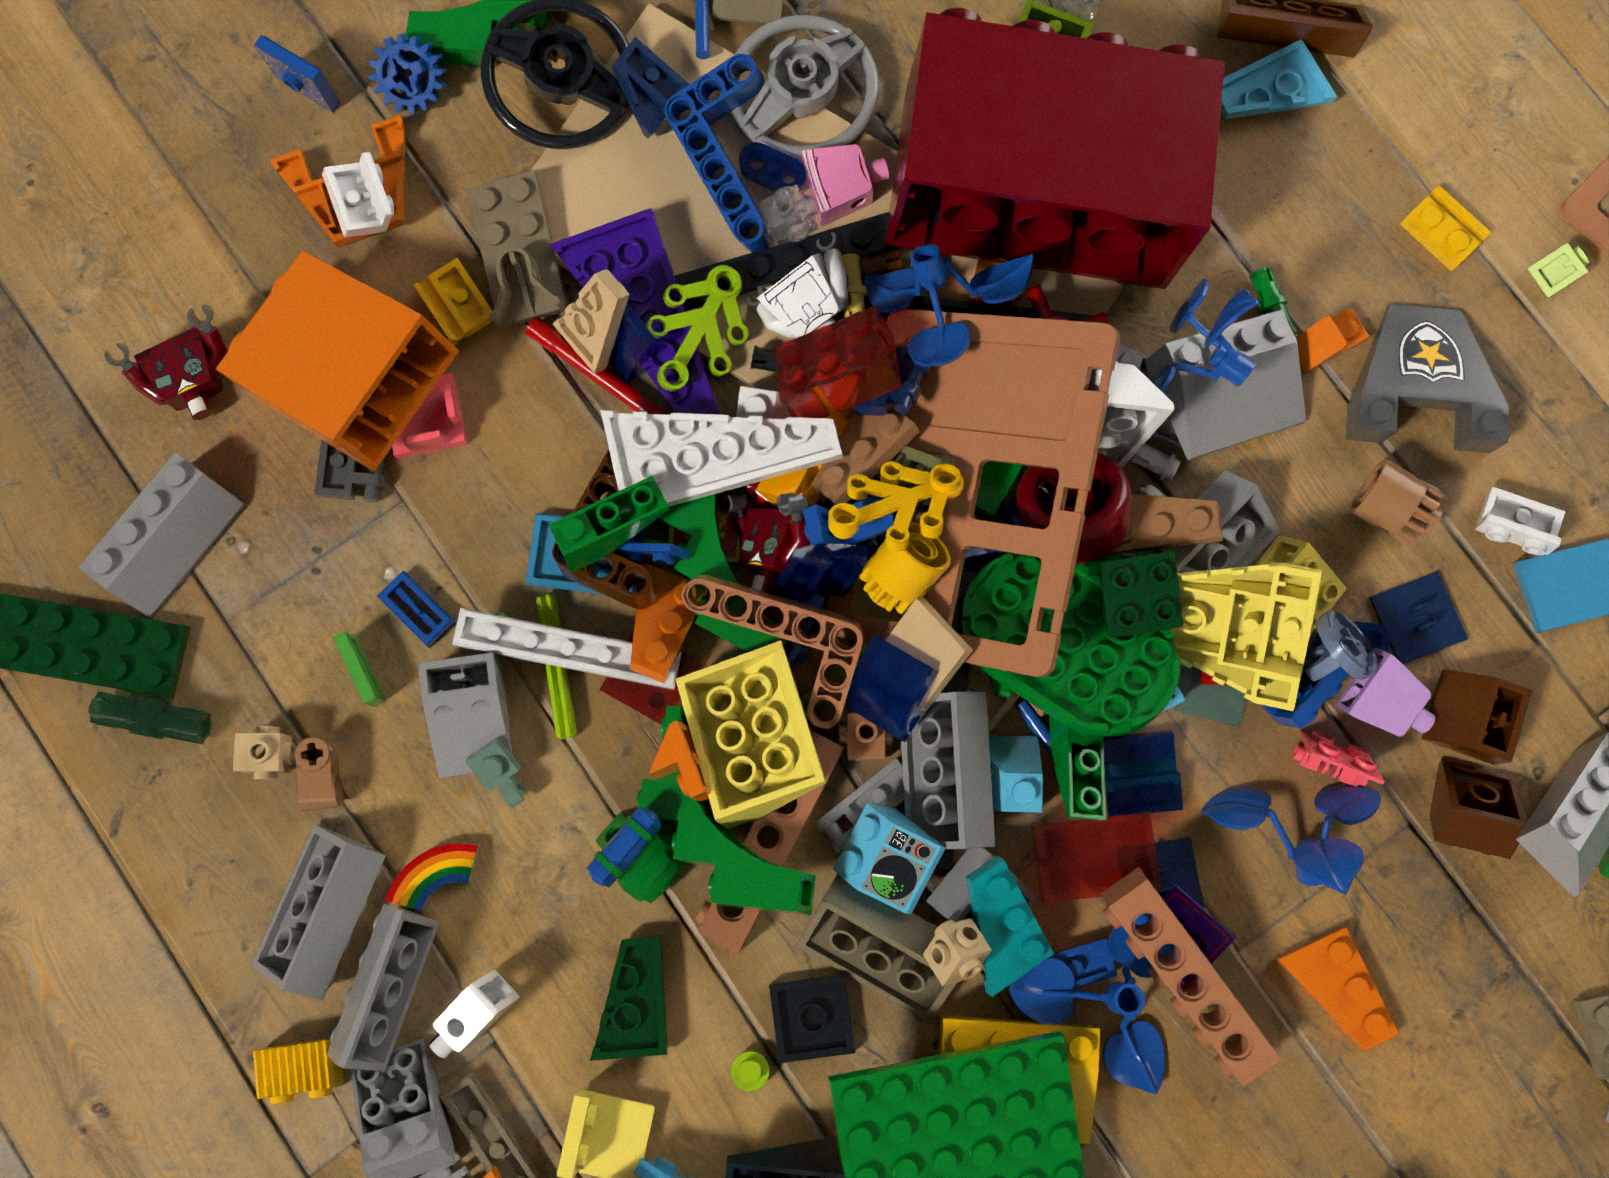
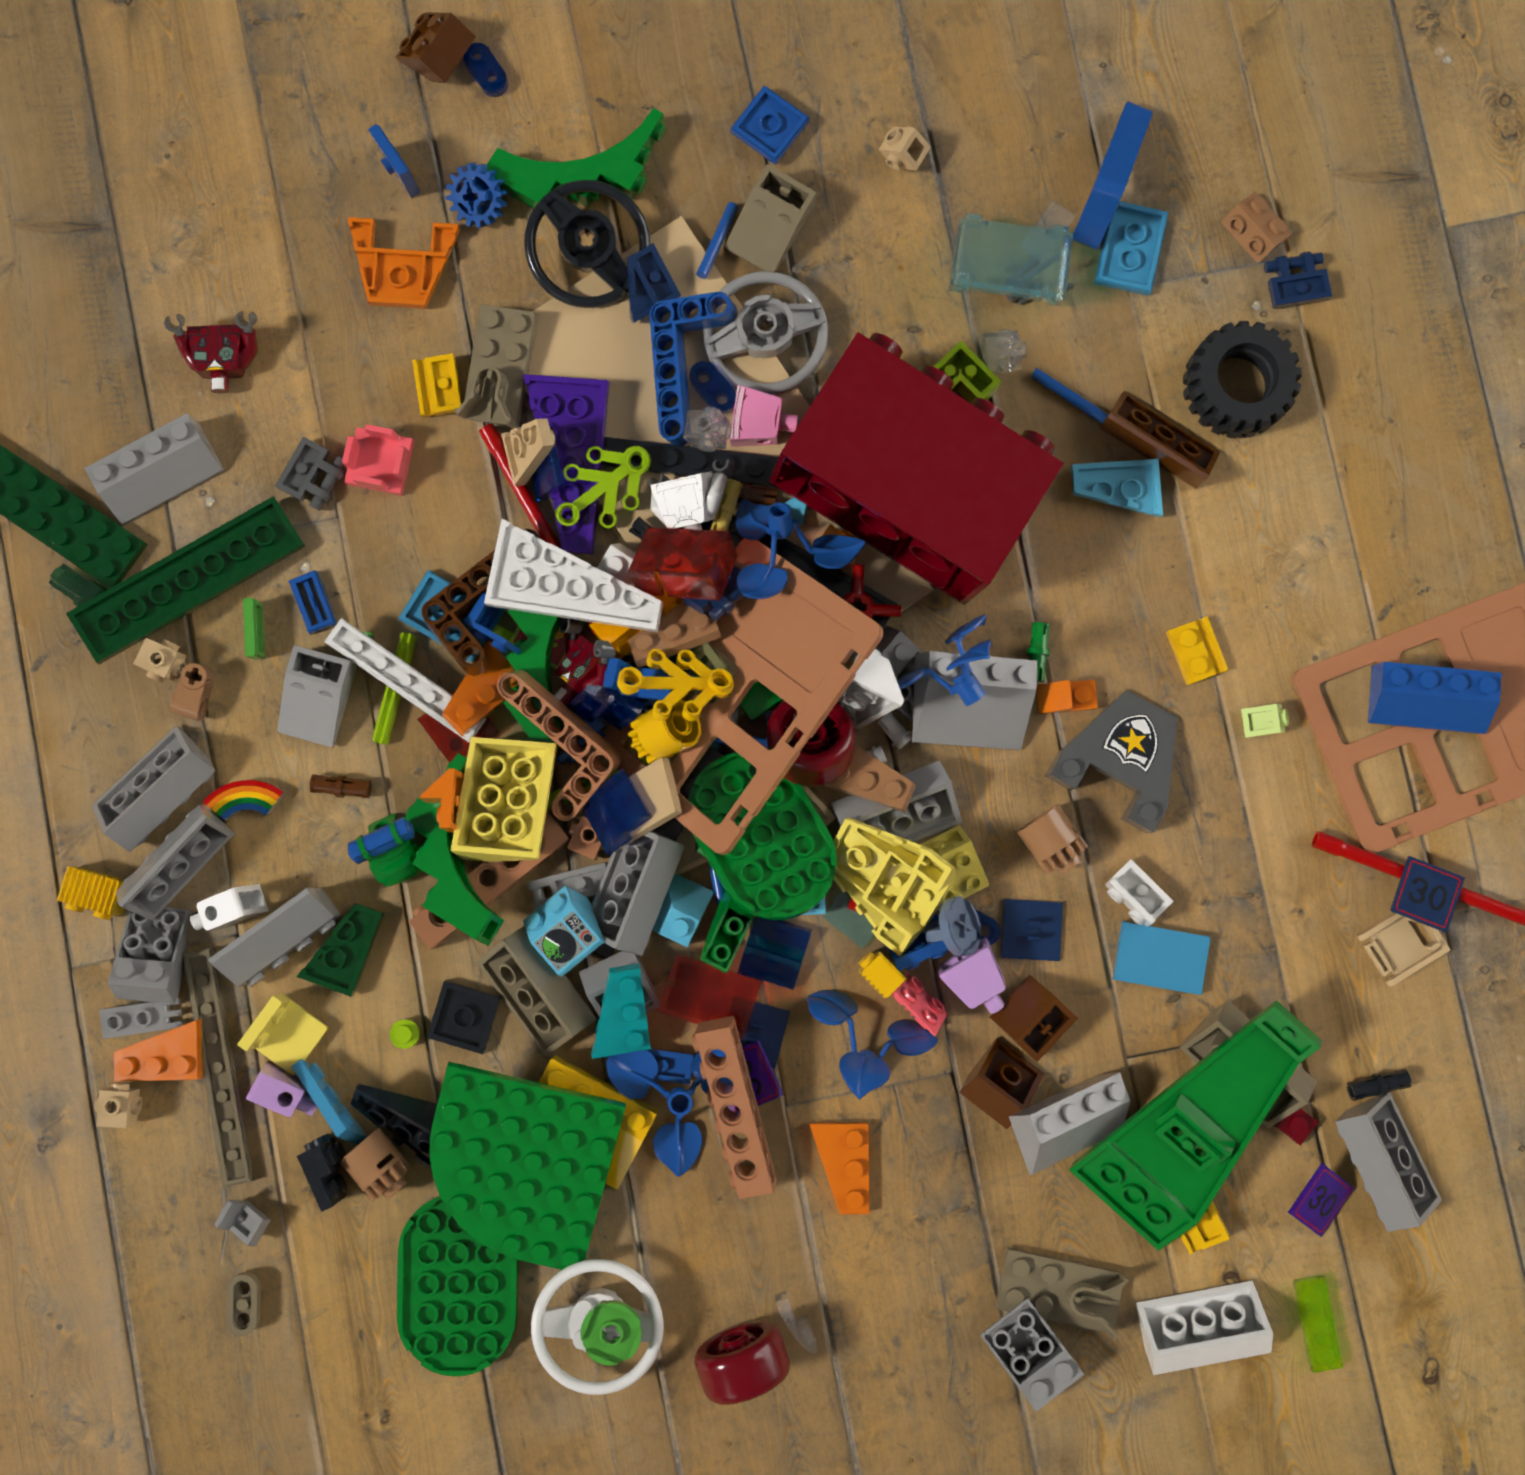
camera: 25 degrees right, 5 degrees up
(253, 648) = (185, 580): none -> dark green plate
(338, 359) = (328, 397): orange brick -> none
(359, 197) = (398, 277): white bracket -> none
(497, 766) = (320, 742): sand green plate -> none
(543, 808) = (340, 786): none -> reddish brown pin
(545, 1024) = (276, 937): none -> light grey slope
(608, 523) = (467, 605): green slope -> none
(957, 951) = (578, 1016): tan brick -> none
(1139, 591) = (826, 822): dark green bracket -> none
(1168, 16) = (1068, 395): none -> blue bar
(1280, 742) = (880, 973): none -> yellow brick

